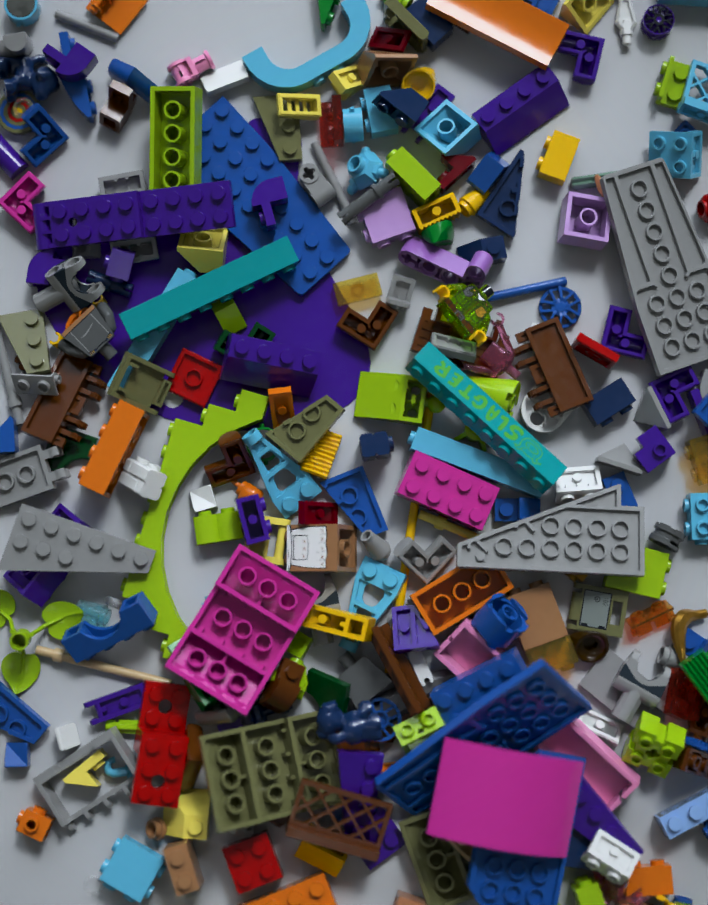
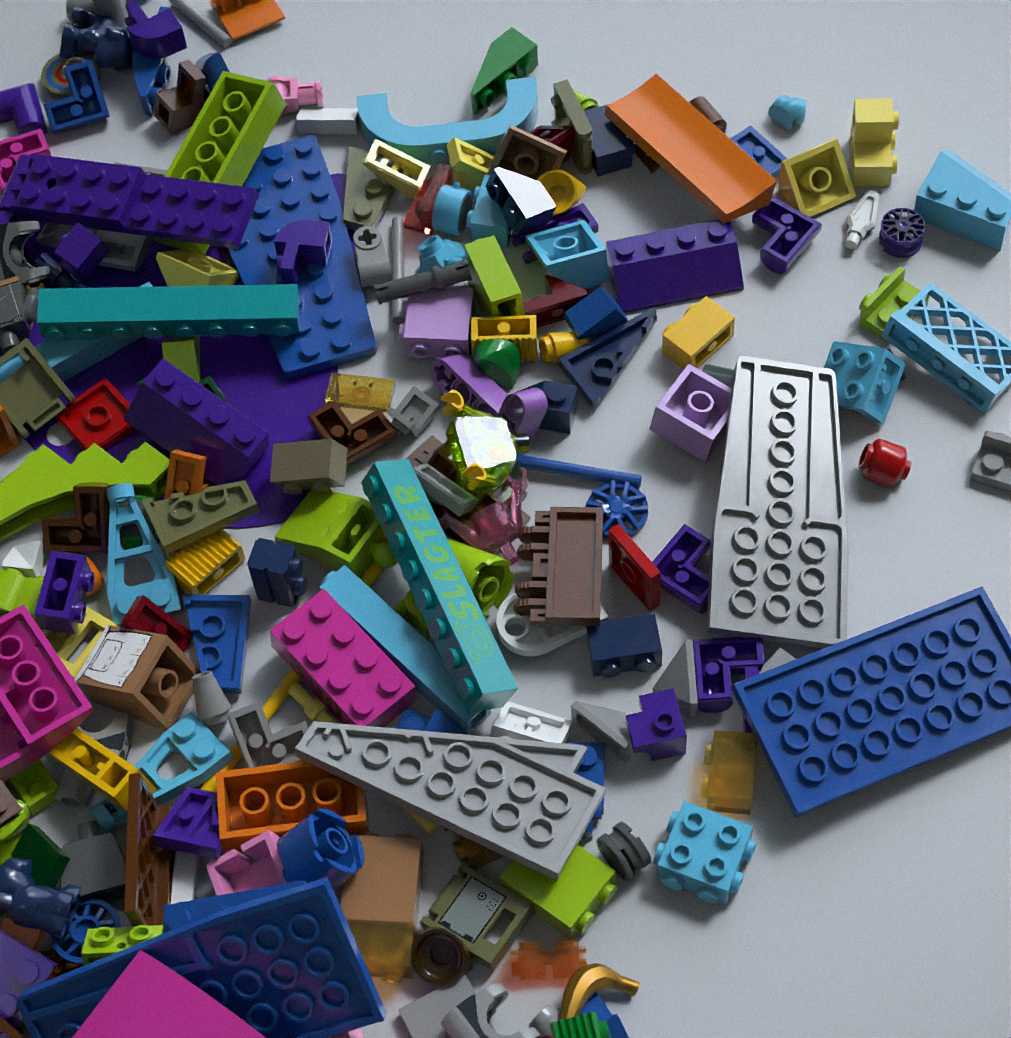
camera: 30 degrees right, 25 degrees down
(356, 363) = (308, 466): none -> dark tan brick

